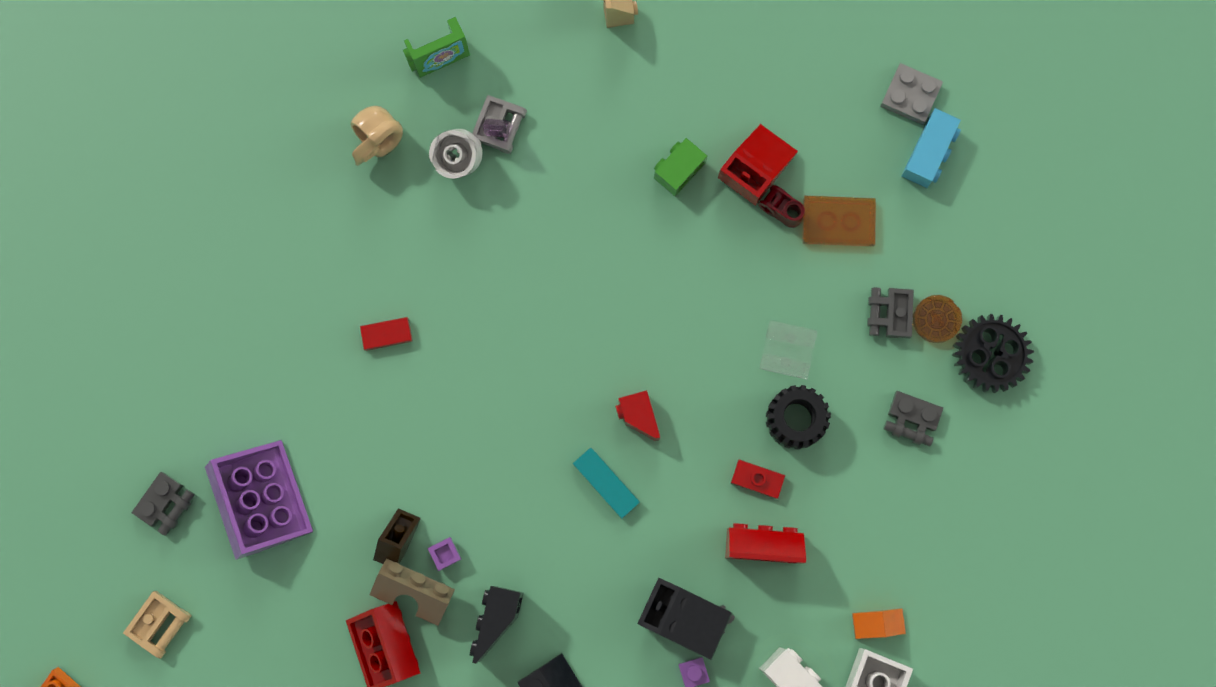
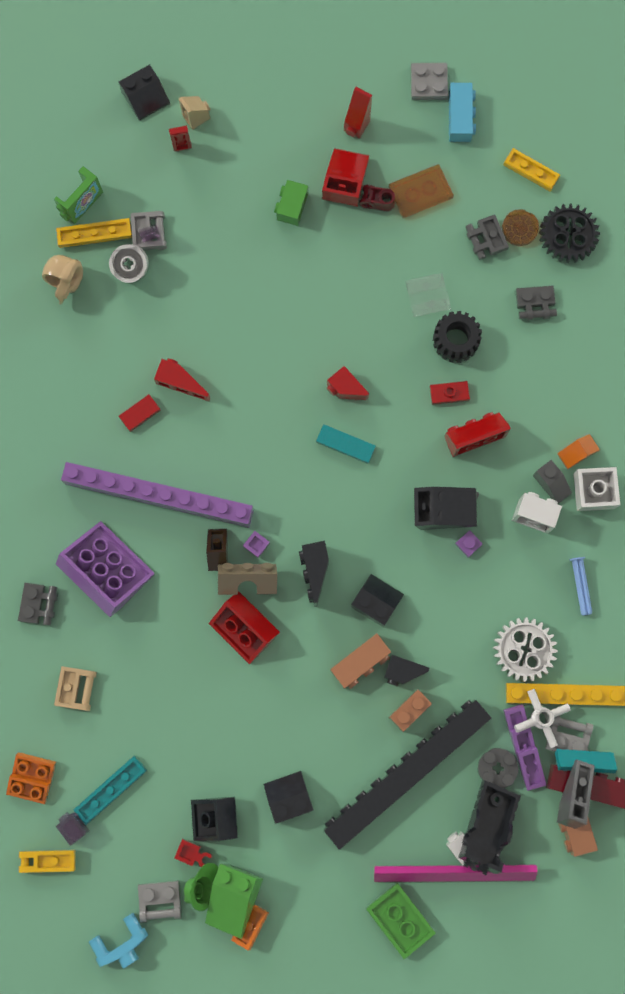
camera: 25 degrees left, 0 degrees up
(359, 441) = (157, 494): none -> medium lavender brick
(435, 98) = (94, 233): none -> yellow plate
(446, 311) = (175, 377): none -> red slope
(585, 33) = (180, 138): none -> red plate
(806, 97) = (358, 113): none -> red slope
(829, 647) = (553, 481): none -> dark grey slope
(984, 255) = (531, 169): none -> yellow tile

